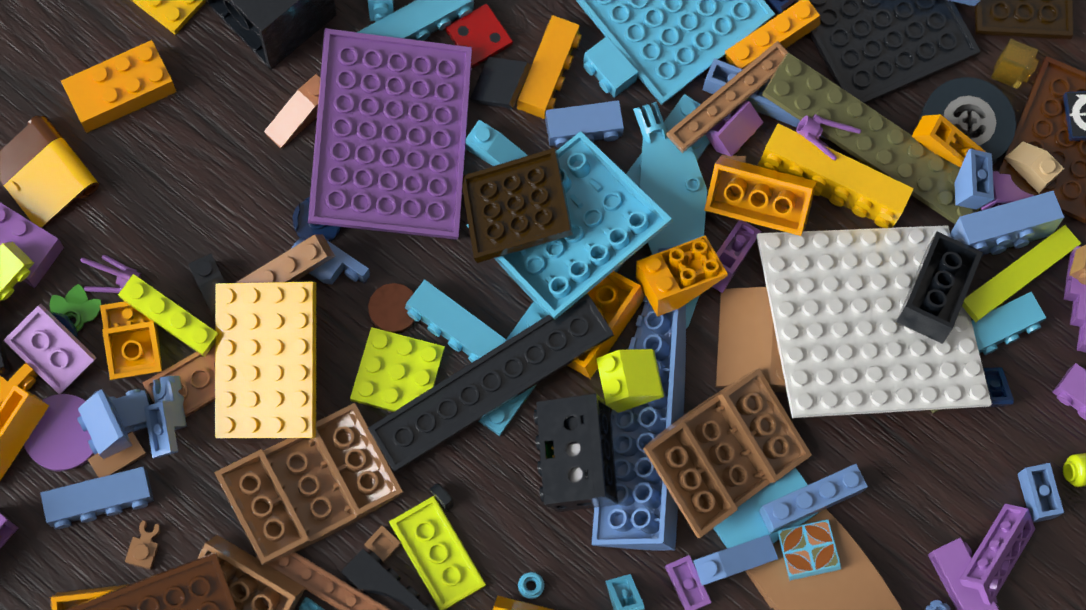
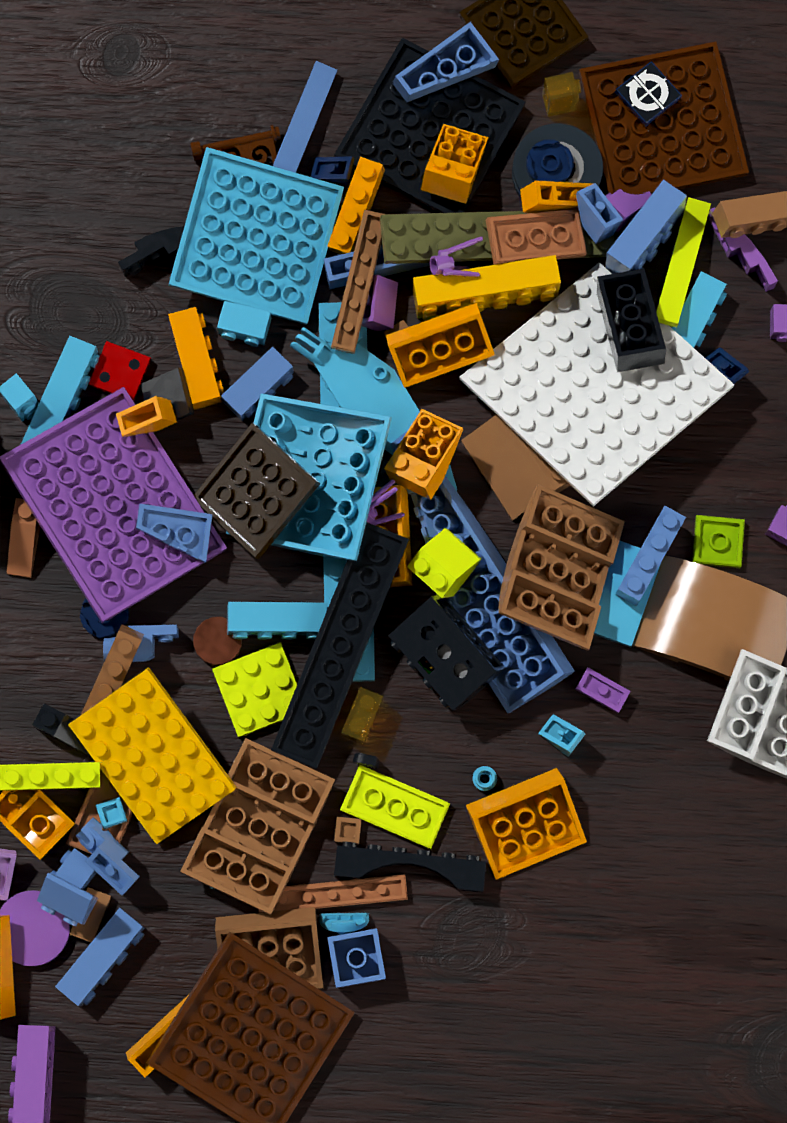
camera: 30 degrees left, 5 degrees up
(143, 550) = (167, 971): medium nougat plate -> none
(198, 384) = (111, 813): none -> medium azure tile
(429, 191) = (177, 528): none -> medium blue wing
(466, 456) = (362, 716): none -> clear yellow brick
(471, 83) = (146, 417): none -> light orange slope
(491, 145) = (200, 455): medium azure slope -> none
(599, 291) = (376, 501): none -> medium lavender plant
(735, 250) = (450, 400): medium lavender slope -> none
(735, 559) = (625, 645): medium blue slope -> none
(809, 550) = (675, 597): tile -> none
(881, 58) = (454, 163): none -> light orange slope
(882, 531) = (718, 541): none -> lime tile
(908, 162) = (536, 236): none -> nougat tile
(965, 110) = (549, 161): none -> dark blue tile
(1034, 165) = (633, 167): tan slope -> none

